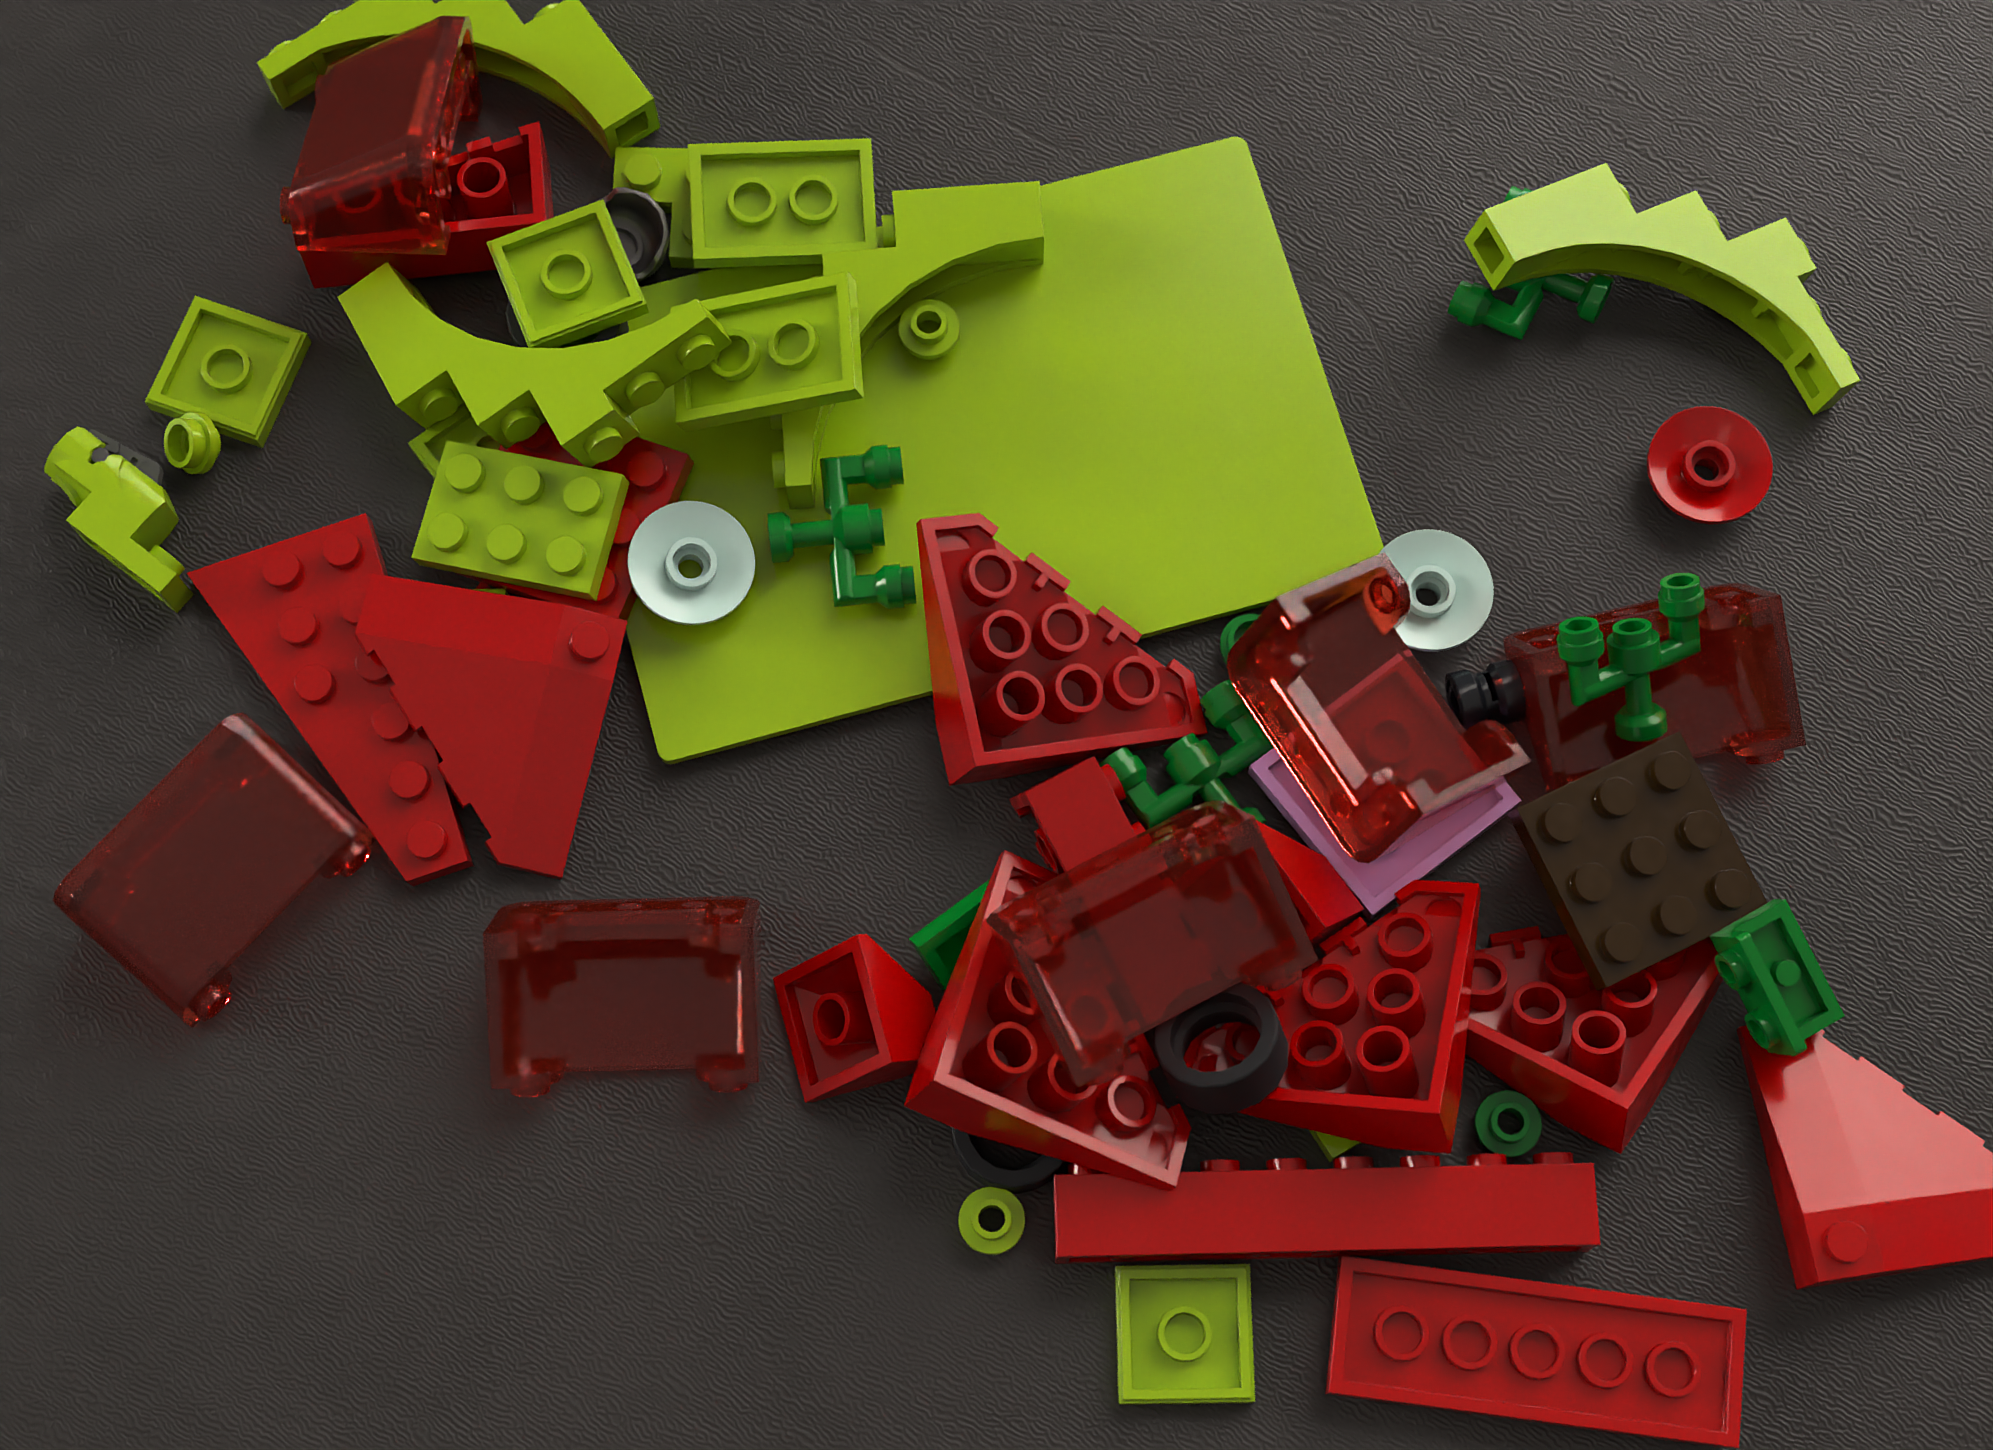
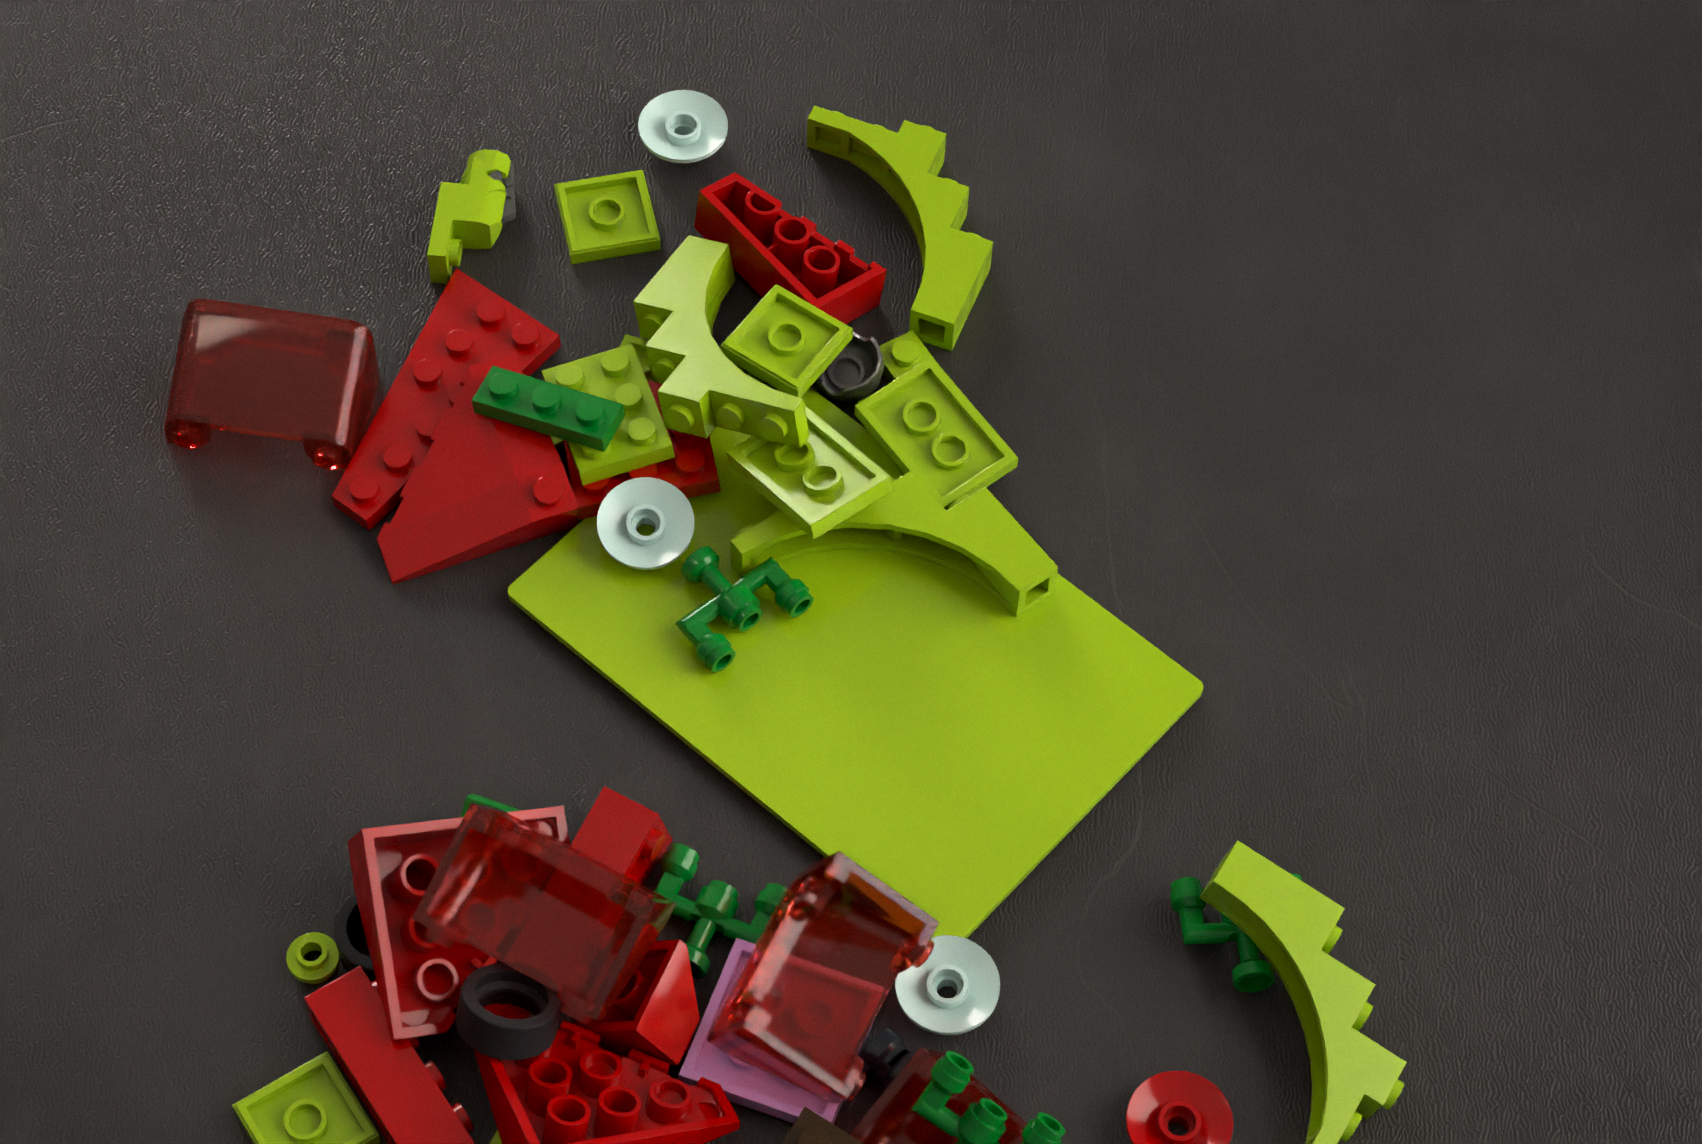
camera: 55 degrees right, 15 degrees down
(160, 198) = (683, 126): none -> light aqua dish
(192, 443) = (543, 222): lime plate -> none
(385, 143) = (782, 190): clear red windscreen -> none
(484, 577) = (548, 408): none -> green plate
(624, 989) = (332, 649): clear red windscreen -> none
(852, 1018) = (398, 789): red slope -> none
(929, 345) = (912, 583): lime plate -> none
(1028, 670) = (715, 764): red slope -> none

